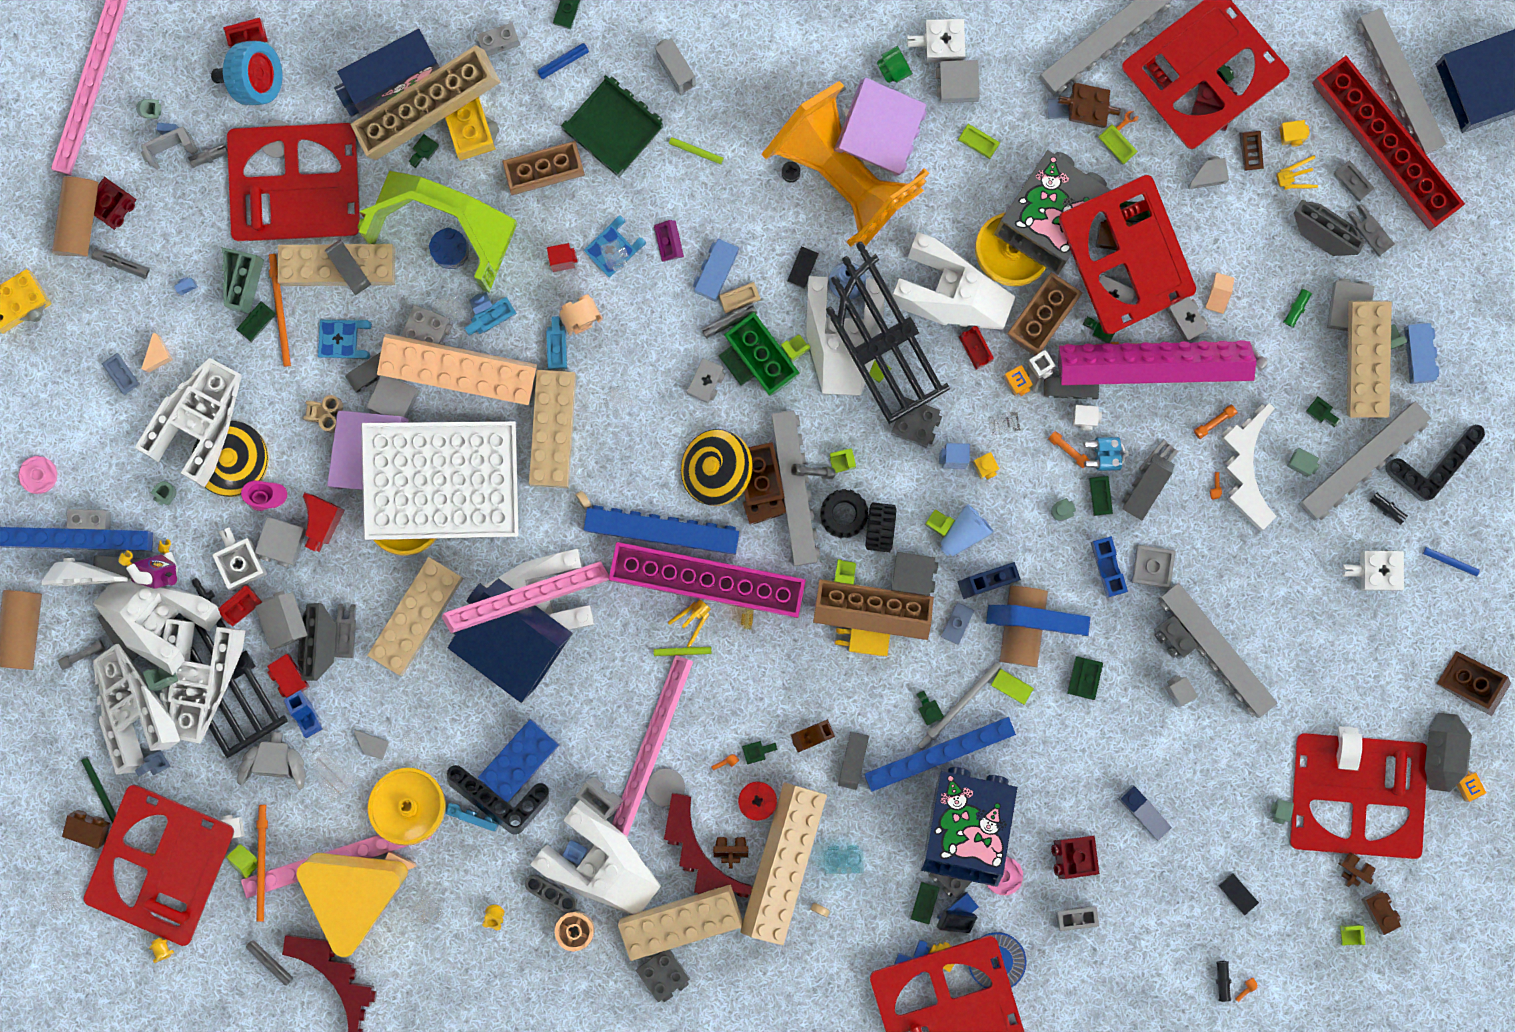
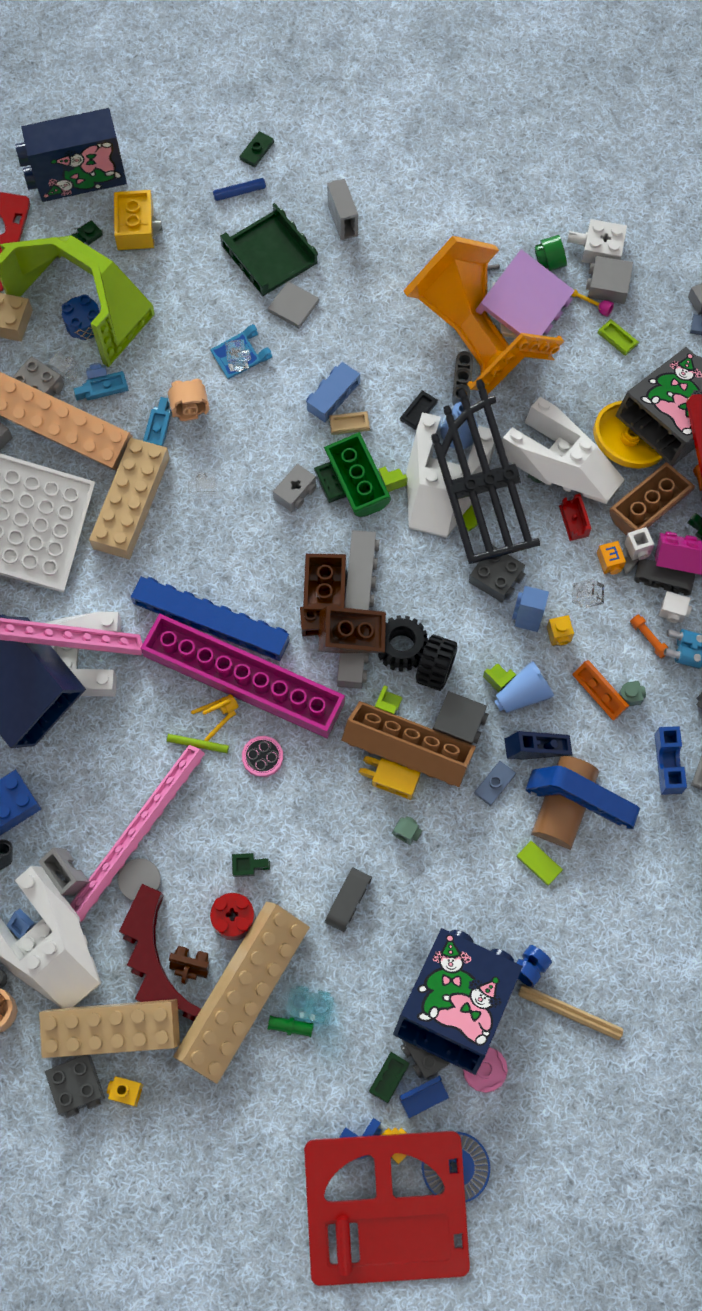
camera: 10 degrees right, 15 degrees down
(425, 103) = (98, 185): tan brick -> none
(499, 39) = (184, 157): light grey brick -> none
(543, 168) = (193, 269): medium nougat brick -> none
(562, 257) = (186, 345): red brick -> none
(583, 500) = (139, 570): tan tile -> none
(652, 181) = (293, 304): none -> light grey tile
(668, 240) = (294, 359): magenta slope -> none
(695, 150) = (342, 288): lime bar -> none
(706, 969) = (124, 1091): none -> yellow brick
(716, 467) = (282, 568): dish -> none
(728, 321) = (320, 442): flat silver pin -> none
(731, 760) = (217, 867): orange hand -> none
(744, 649) = (262, 756): none -> tile
(747, 619) = (274, 725): clear yellow plate -> none
(791, 176) = (425, 326): black wheel -> none
(797, 518) = (351, 630): none -> reddish brown slope
(801, 470) = (367, 587): flat silver bar -> none
(812, 736) = (310, 861): reddish brown brick -> none
(820, 910) = (269, 1055): tan tile -> none
(831, 881) = (290, 1026): none -> green pin
(838, 217) = (462, 371): none -> dark grey beam
(842, 460) = (413, 592): lime panel -> none
(889, 686) = (407, 830): none -> sand green plate
(930, 710) = (444, 866): dark green plate -> none
(933, 733) = (443, 891): light grey bar -> none
(939, 754) = (444, 914): blue brick -> none
(956, 921) = (420, 1106): black tile -> none
(959, 111) = (604, 307): none -> dark pink hinge
(1025, 788) = (533, 963): none -> blue wheel
(1034, 513) = (600, 690): none -> orange plate
(1065, 810) = (571, 1012): none -> tan axle
(1075, 857) = (571, 1067): dark red plate -> none
(1077, 918) = (559, 1137): light grey brick -> none
(1085, 678) = (621, 872): dark green plate -> none
(1100, 496) = (674, 689): dark green plate -> none
(1144, 812) = (659, 1035): slope -> none

